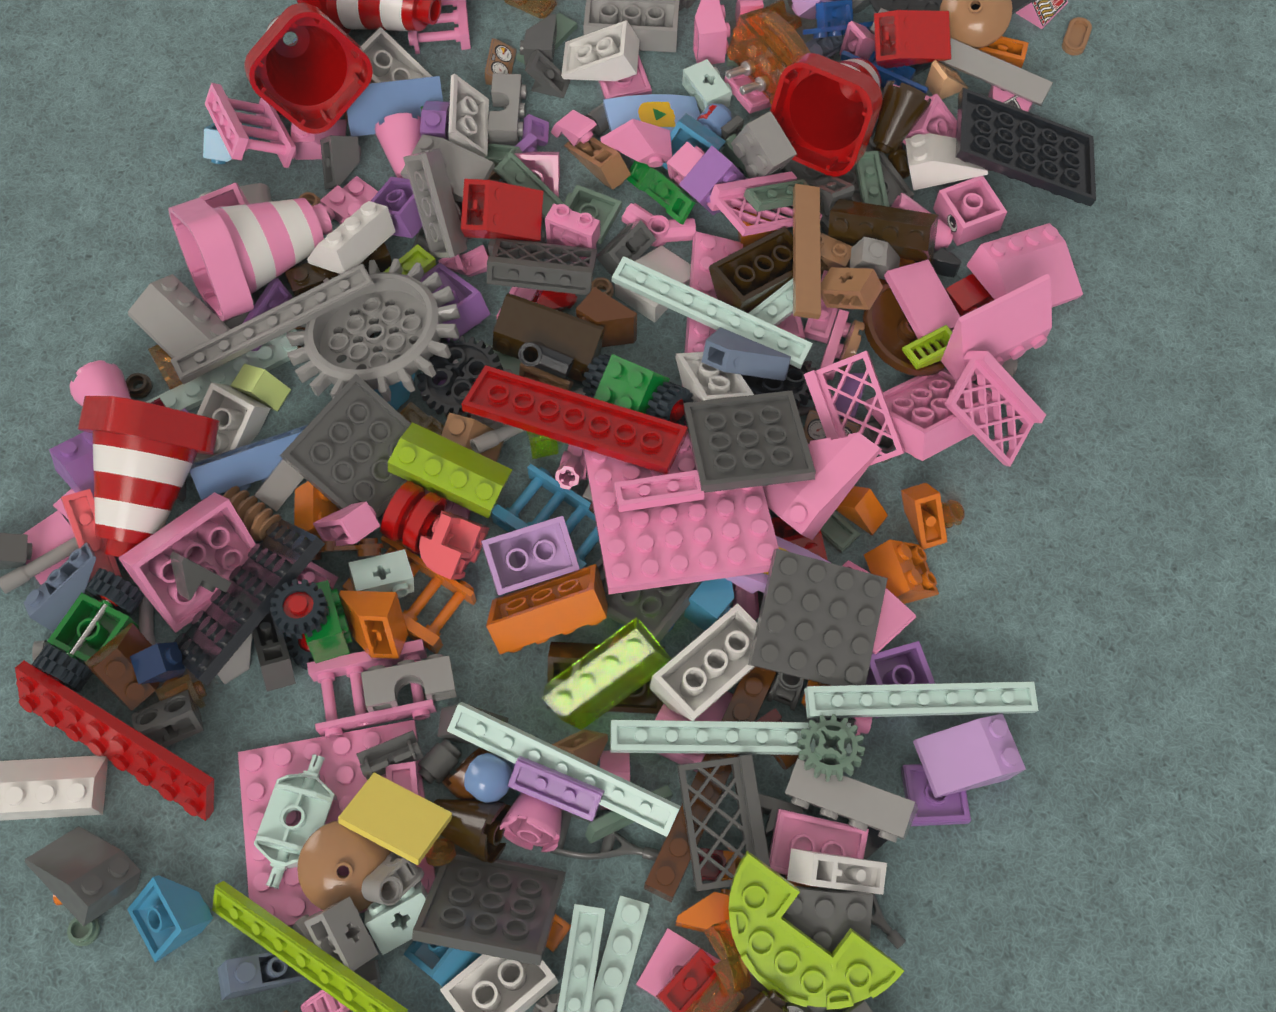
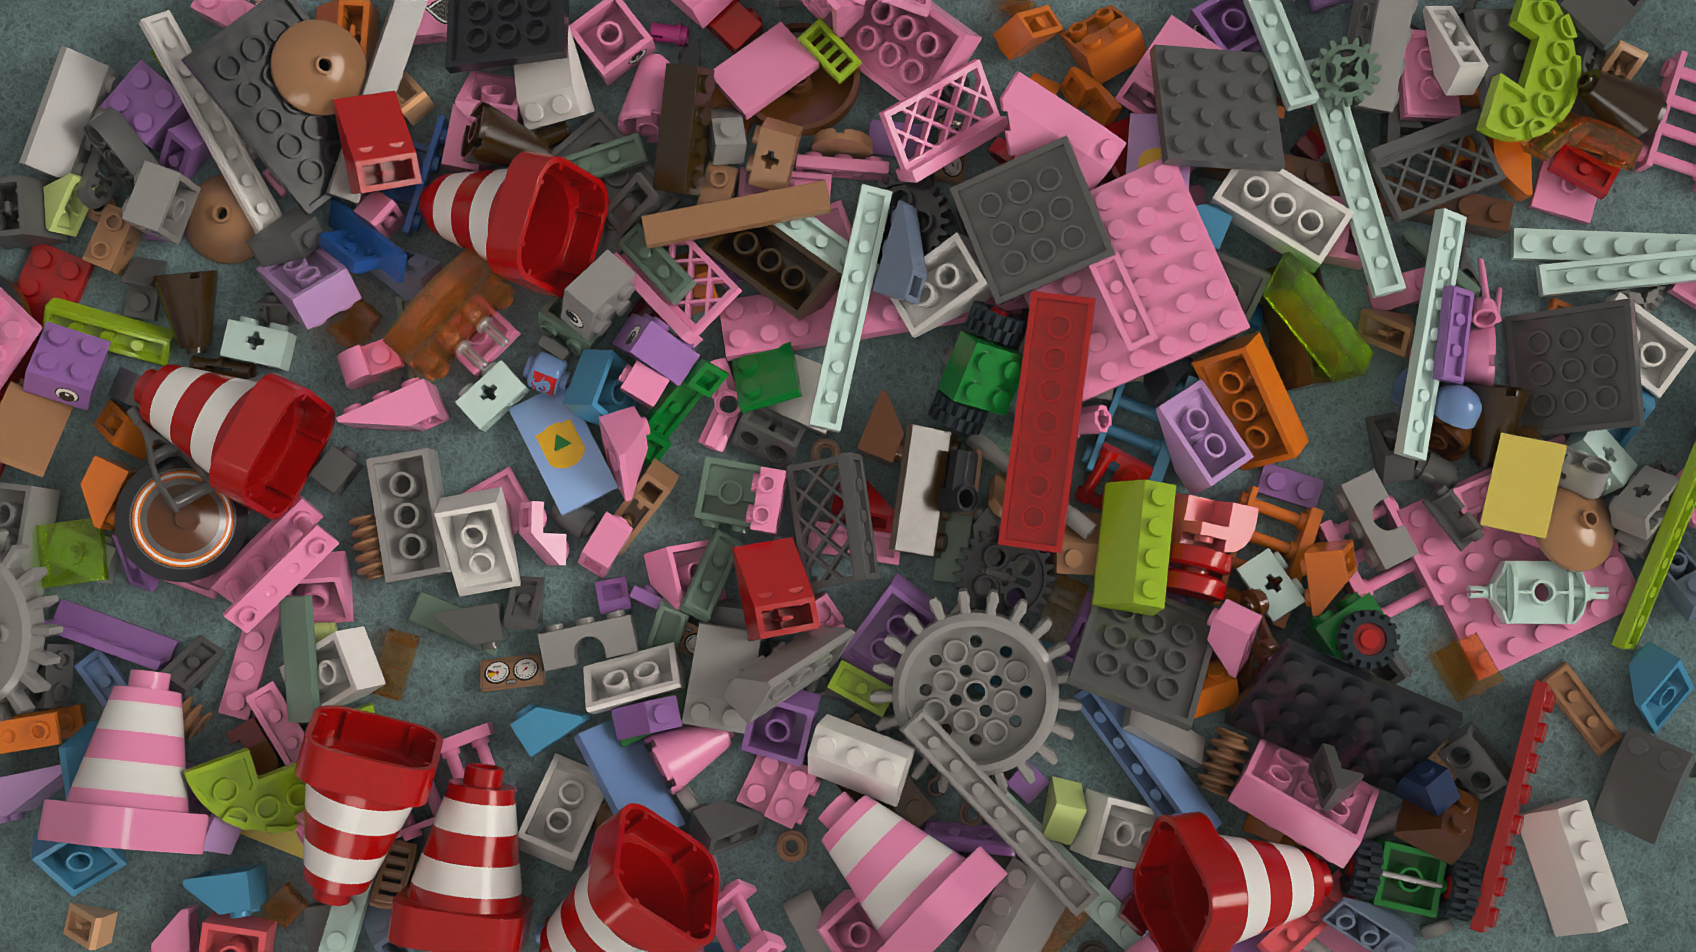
camera: 105 degrees left, 20 degrees up
(177, 842) = (1582, 709): none -> medium nougat tile
(253, 742) = (1466, 667): none -> clear orange piece
(287, 373) = (1027, 791): none -> medium lavender tile
(369, 145) = (688, 798): none -> light grey tile
(451, 59) = (545, 725): none -> dark azure slope
(465, 634) = (1289, 486): none -> medium lavender plate
(516, 496) = (1128, 470): none -> red plate
(575, 832) = (1486, 310): none -> bright pink plant
(586, 96) = (549, 547): none -> bright pink slope
(587, 540) = (1163, 380): none -> black slope
(670, 250) = (766, 378): none -> green plate
(856, 546) = (1088, 94): none -> orange slope
(967, 253) = (670, 33): none -> dark pink pin

